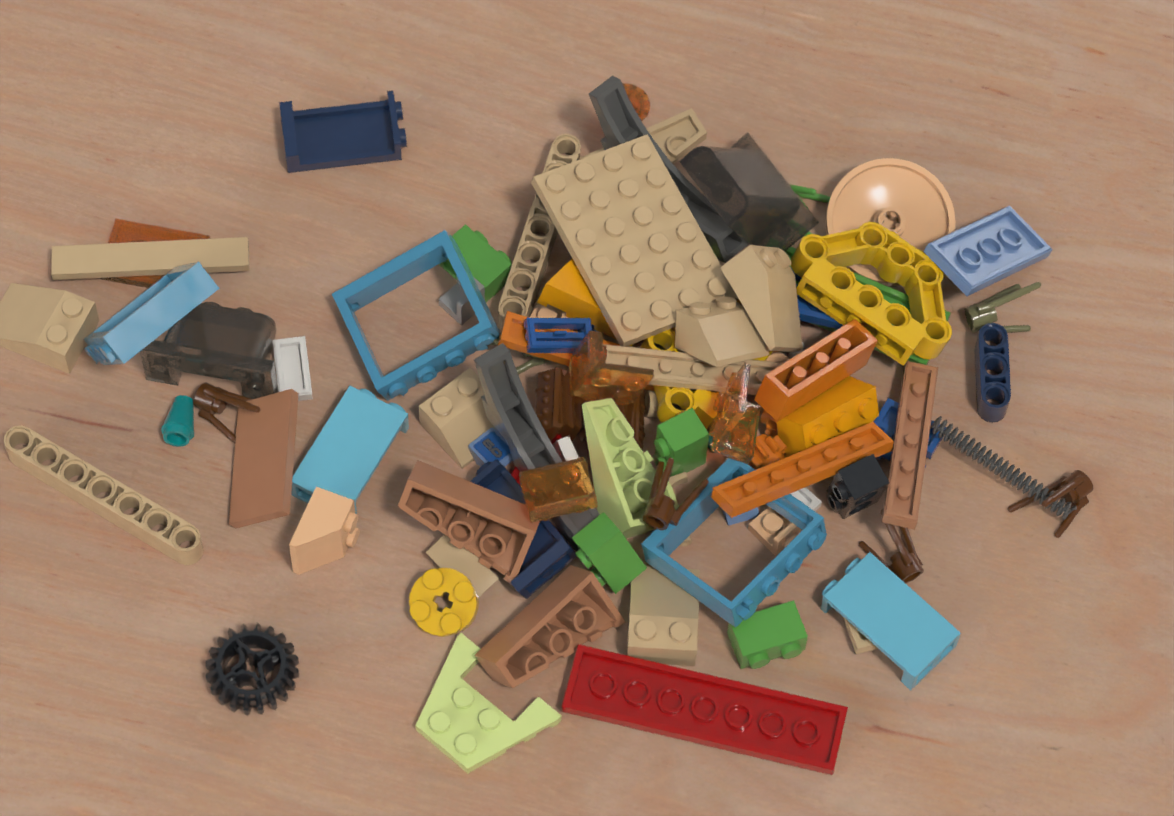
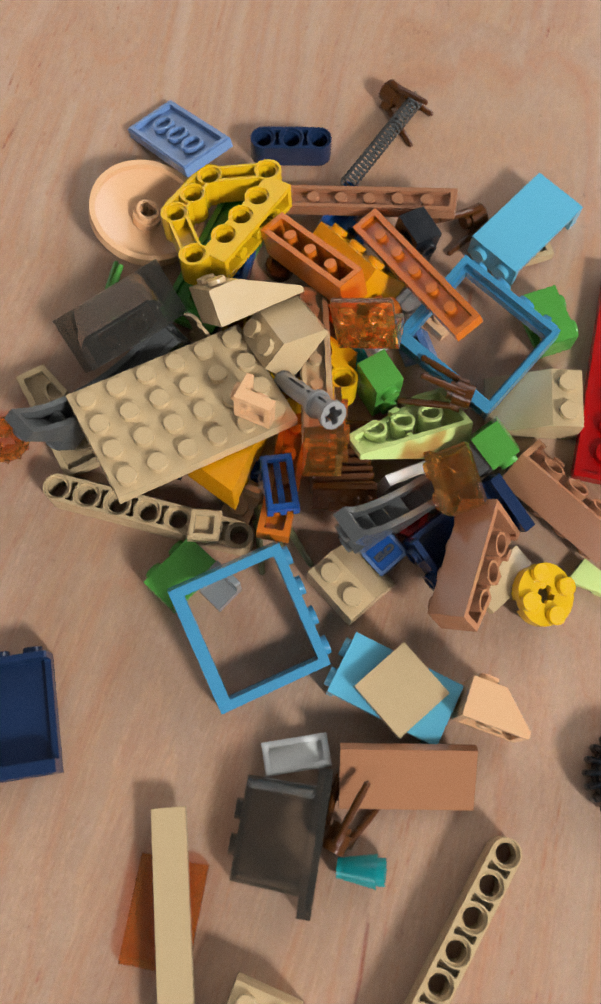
camera: 90 degrees left, 10 degrees up
(150, 314) = (295, 896): dark azure window -> none
(346, 448) = (401, 690): none -> tan tile
(520, 275) = (204, 525): none -> tan tile
(631, 346) = (314, 402): none -> light grey pin
(636, 283) = (251, 405): none -> light nougat bracket
(984, 312) = (240, 151): olive plant -> none

